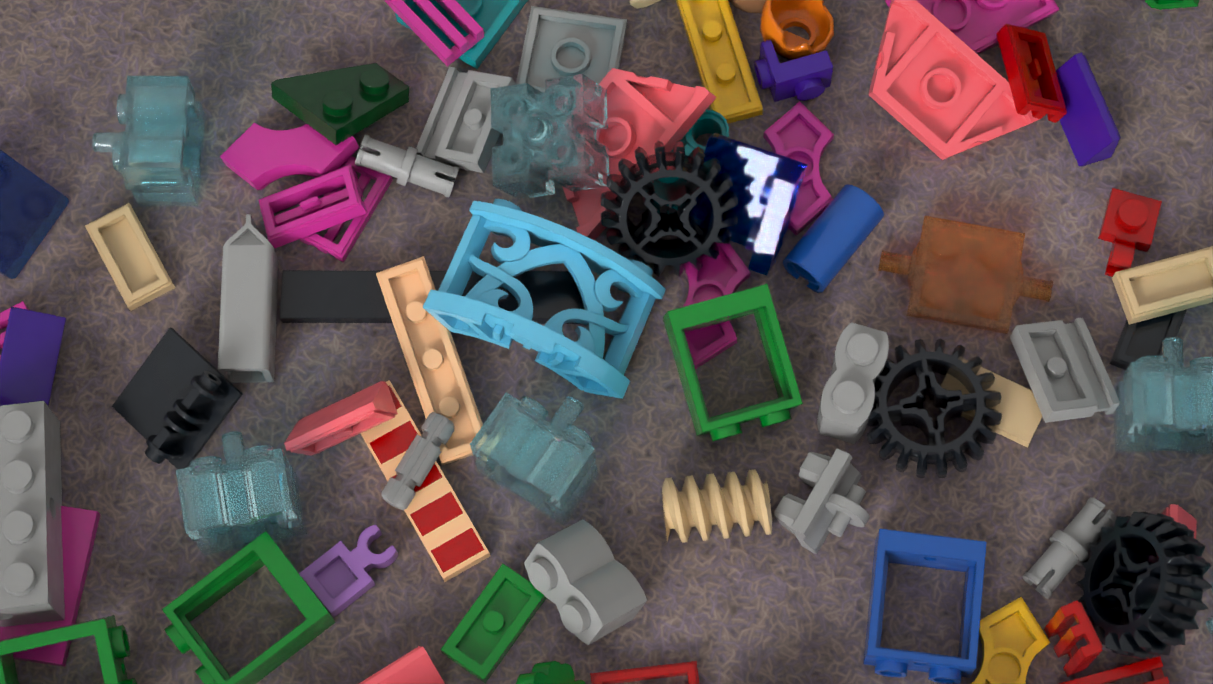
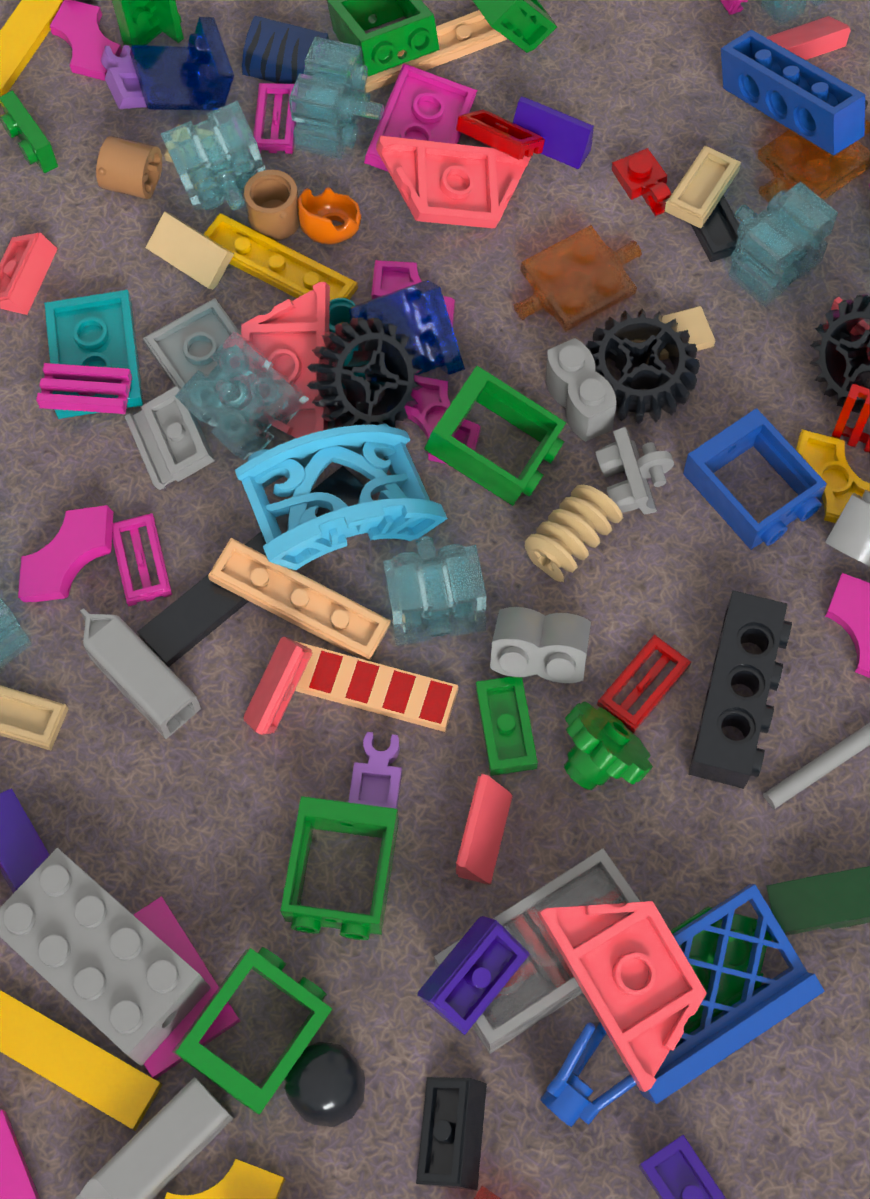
camera: 45 degrees left, 5 degrees down
(176, 401) = (147, 774): black hinge -> none
(240, 499) = (263, 792): clear light blue brick -> none
(313, 213) = (124, 575): dark pink tile -> none
(341, 99) = (70, 492): dark green wing -> none
(406, 166) = (158, 496): light grey pin -> none
(418, 461) = (356, 666): light grey axle -> none
(799, 77) = (353, 254): dark purple bracket -> none
(834, 237) = (479, 319): blue pin -> none
(1064, 370) = (693, 281): light grey plate -> none
(1069, 547) = (799, 378): light grey pin -> none

